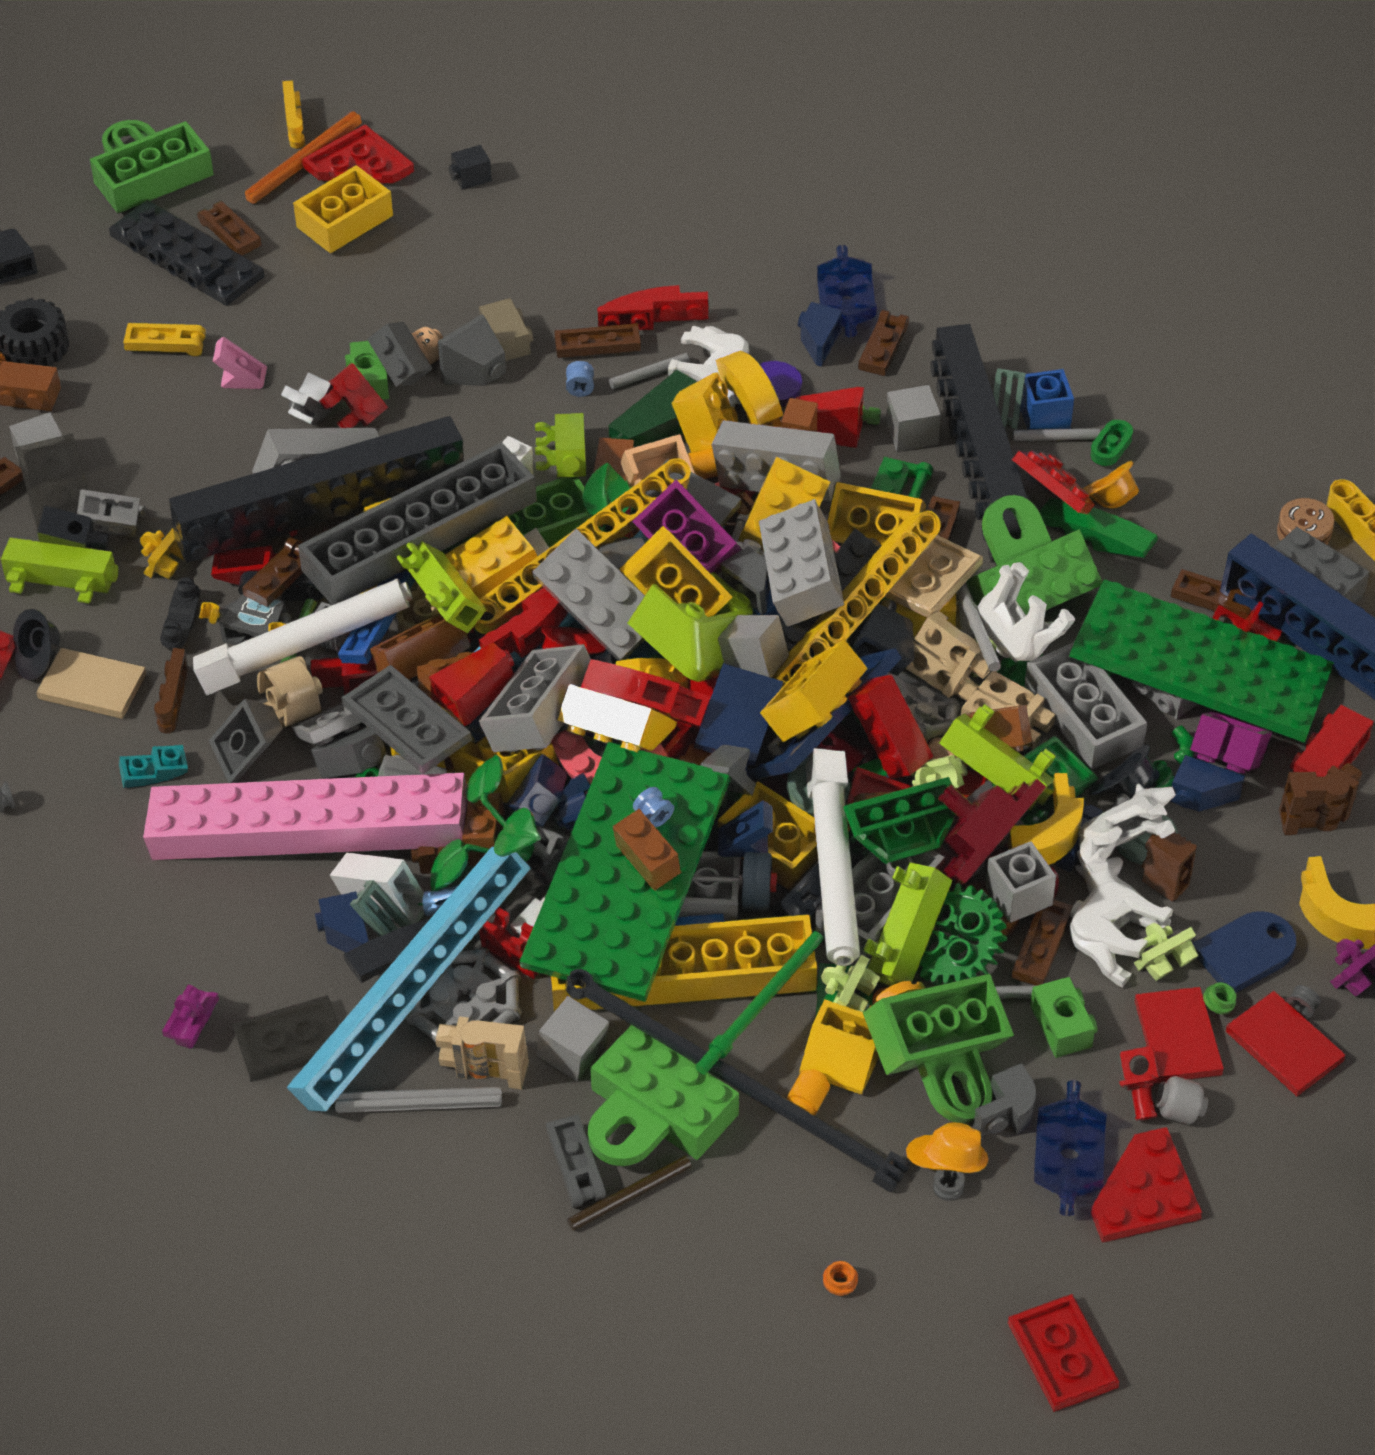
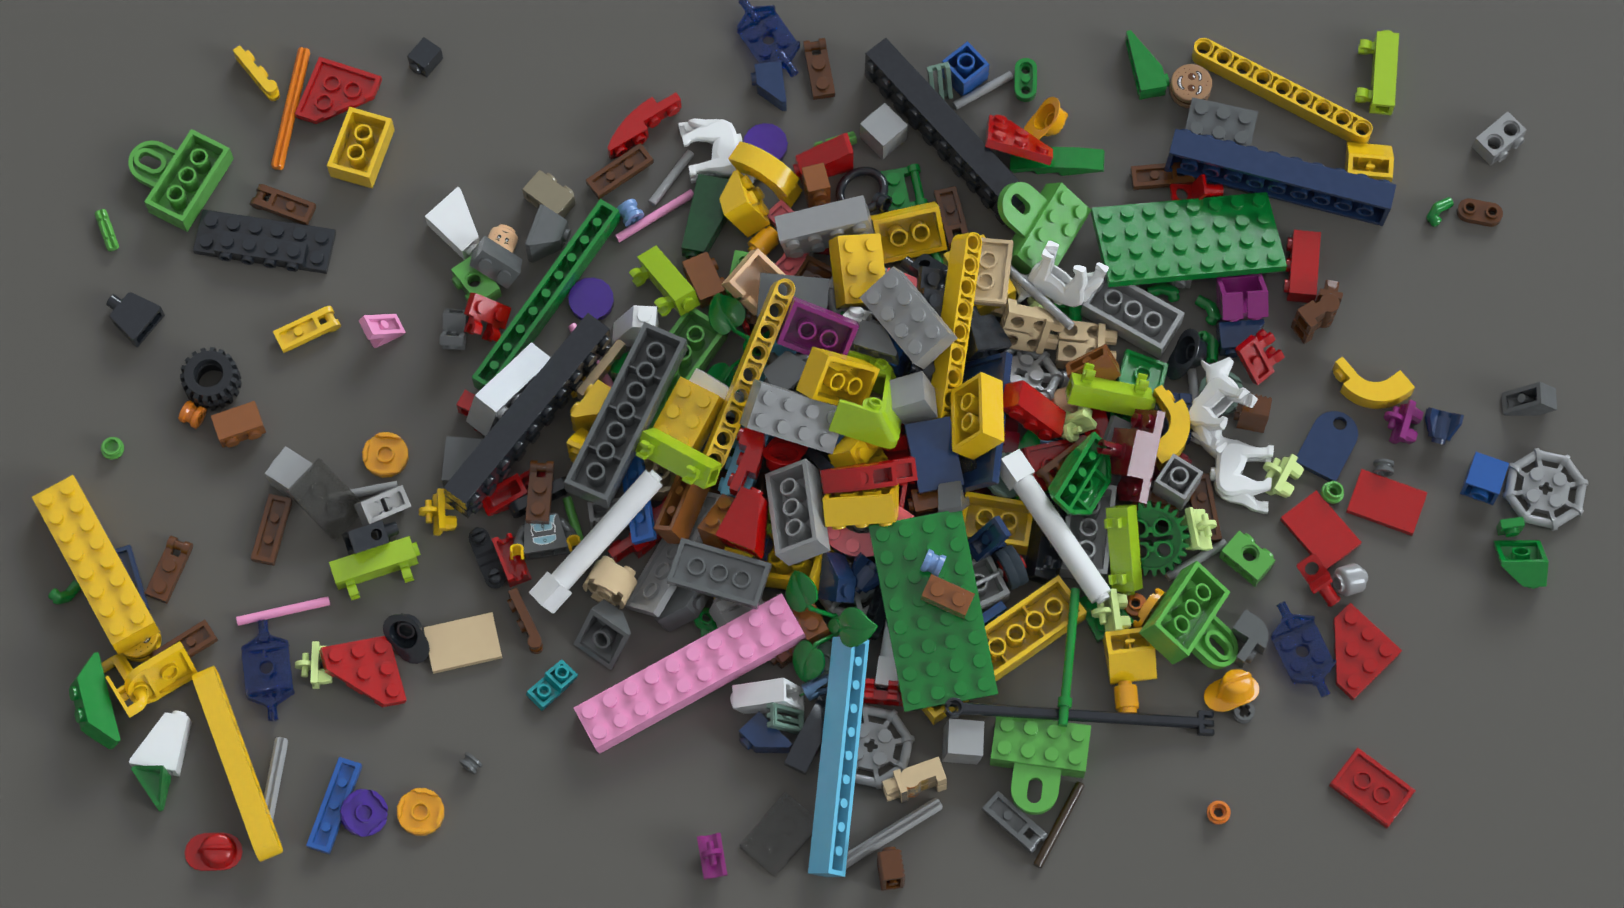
camera: 30 degrees left, 20 degrees up
(41, 179) = (106, 230): none -> bright green axle
(153, 480) = (385, 454): none -> light orange tile
(199, 633) = (514, 569): none -> red hinge
(384, 1129) = (890, 868): none -> reddish brown brick
(388, 303) = (454, 223): none -> white slope
(469, 394) = (550, 291): none -> green brick
(480, 434) = (591, 297): none -> dark purple tile
(598, 396) = (652, 217): none -> bright pink bar
(862, 476) = (880, 201): none -> black piece
(1017, 952) = (1199, 529): none -> yellowish green hips
(1145, 704) = (1165, 289): none -> green arm
(1207, 812) = (1255, 360): none -> red plate
(1261, 489) = (1146, 70): none -> green slope

